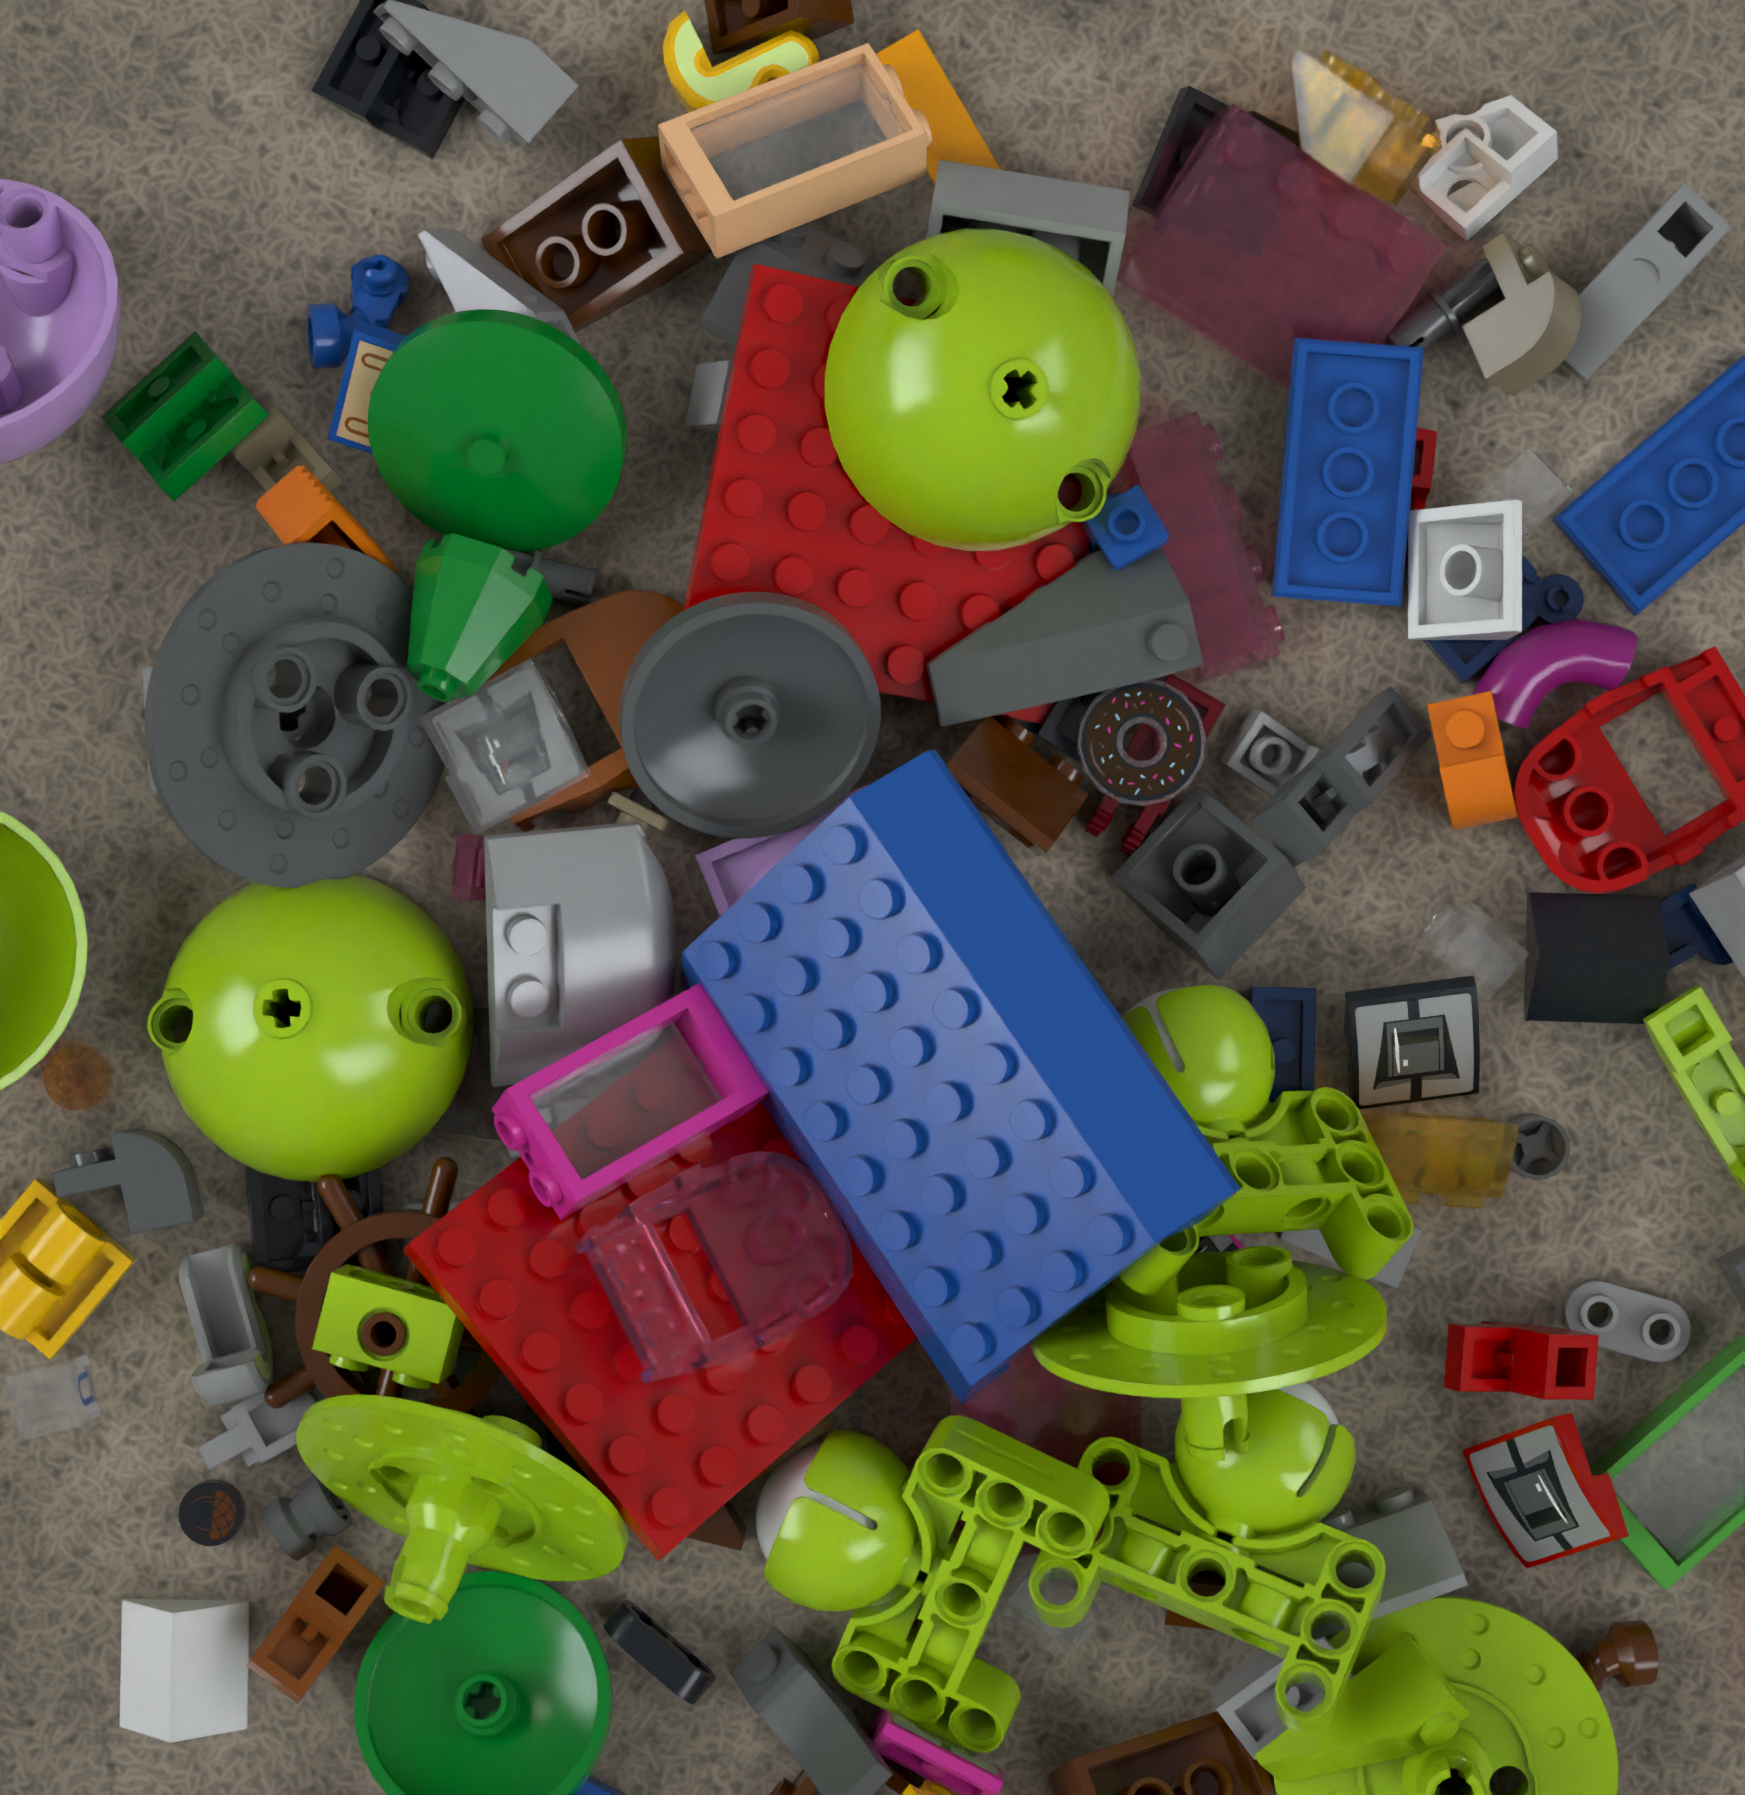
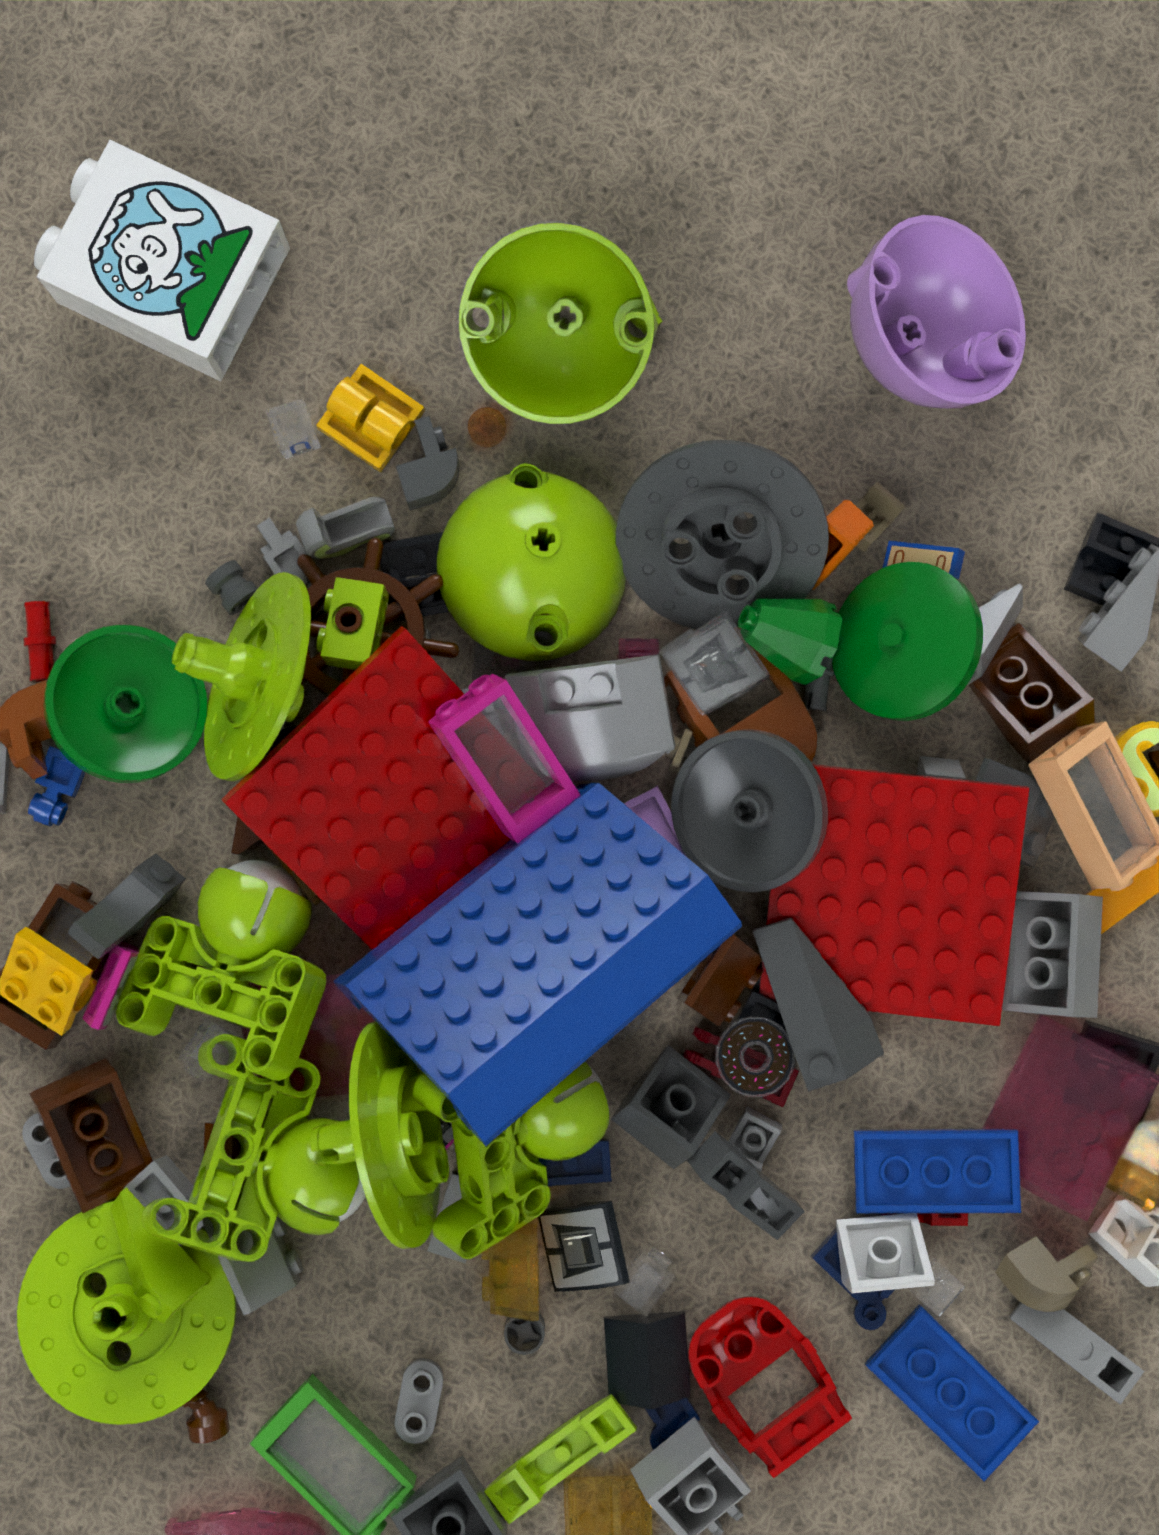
camera: 75 degrees right, 5 degrees down
(184, 1667) = (135, 522): white slope -> none
(185, 416) = (892, 454): green slope -> none
(212, 1512) = (230, 530): black tile -> none
(316, 1624) = (167, 598): dark orange brick -> none
(372, 302) = (979, 562): blue arm -> none
(659, 1652) = (164, 808): black beam -> none
(766, 1238) = (428, 849): clear pink slope -> none
(923, 403) = (957, 899): lime piece -> none
(1126, 528) = (887, 1033): blue bracket -> none
(1204, 548) = (889, 1080): clear pink brick -> none
(1446, 307) = (1046, 1226): dark grey axle -> none
(1472, 761) = (764, 1268): orange brick -> none
(1521, 1360) = (388, 1336): red brick -> none
(1544, 1492) = (306, 1359): slope -> none
(1553, 657) = (833, 1311): magenta cylinder -> none

